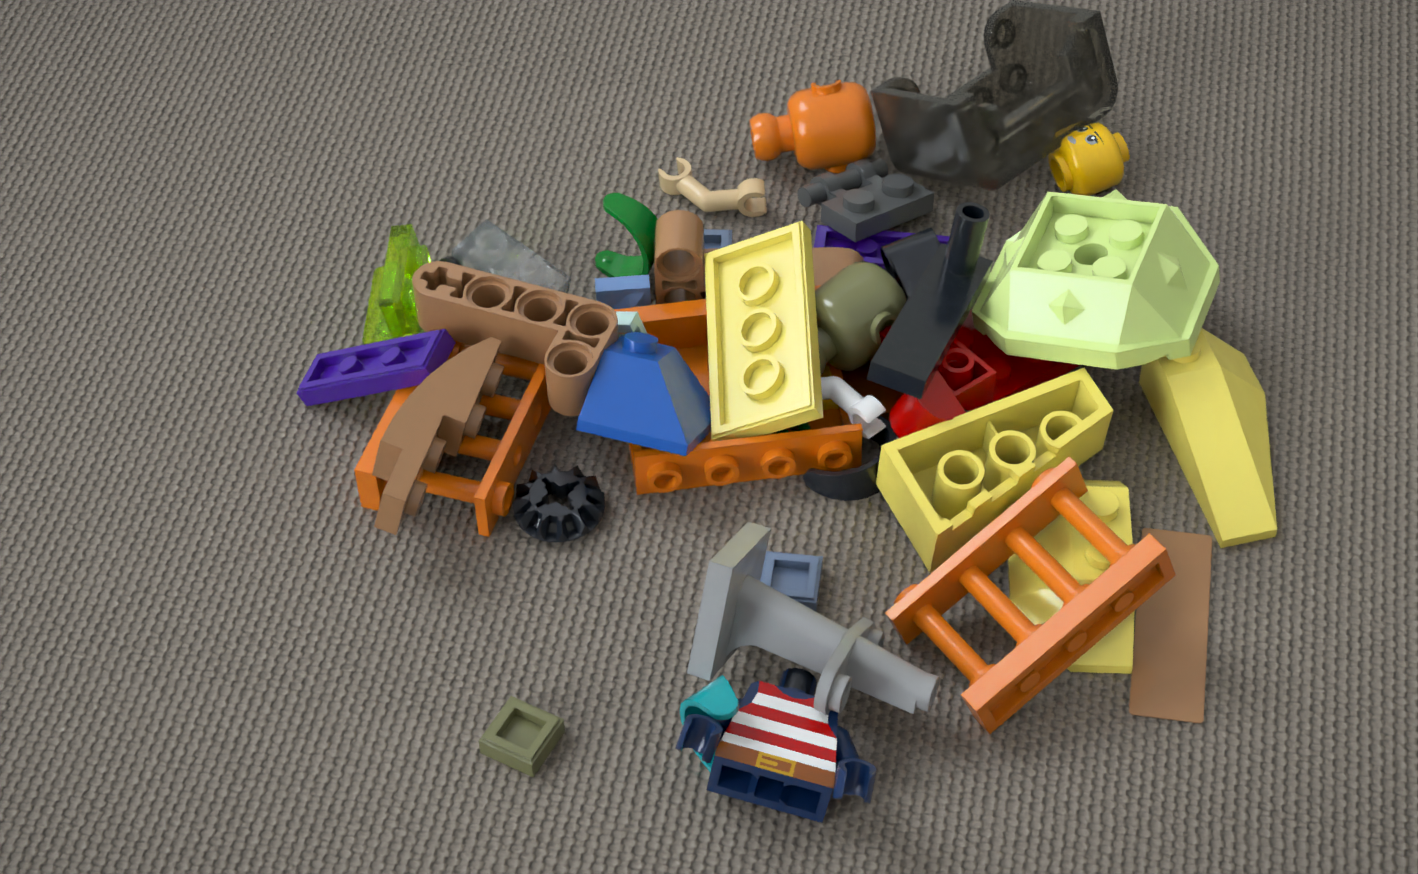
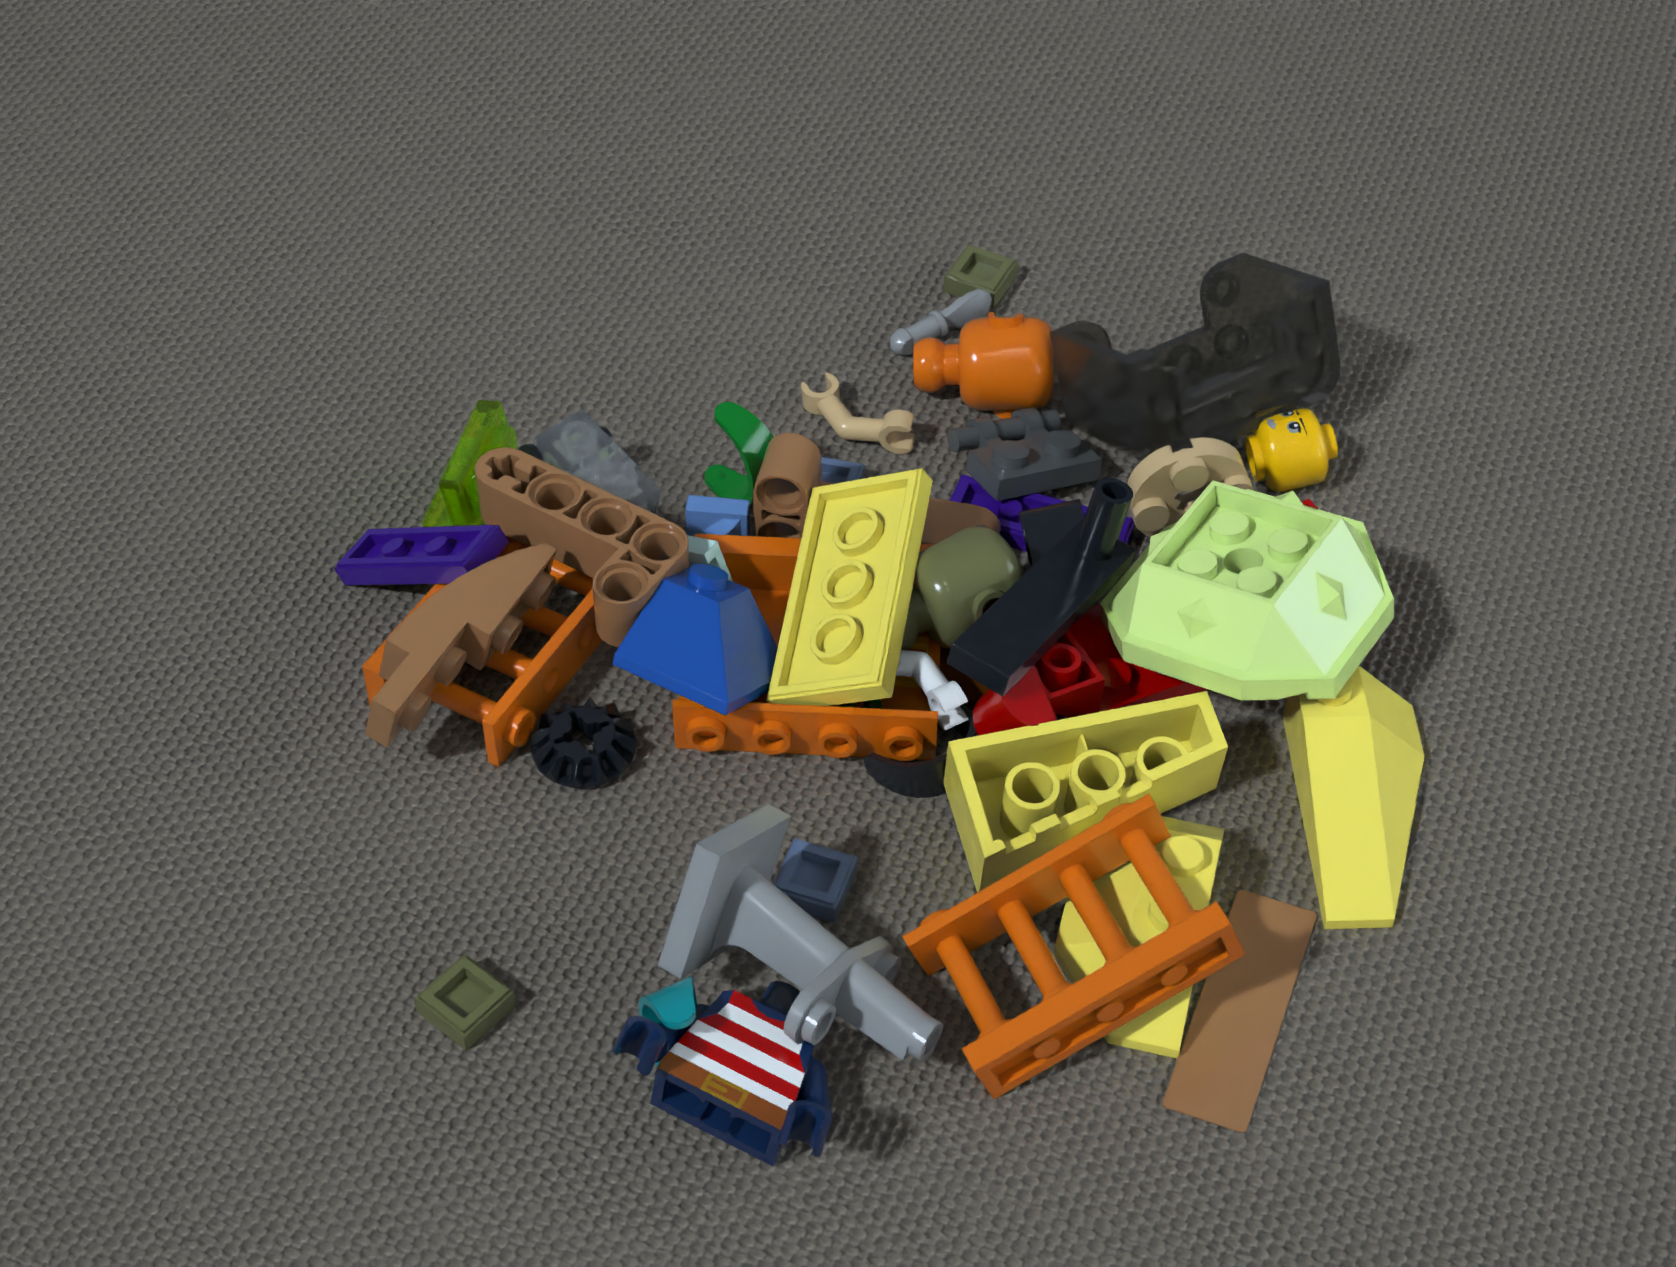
camera: 10 degrees right, 0 degrees up
(776, 91) = (967, 307): none -> light grey piece
(783, 55) = (980, 270): none -> olive tile
(1017, 188) = (1166, 473): none -> tan plate

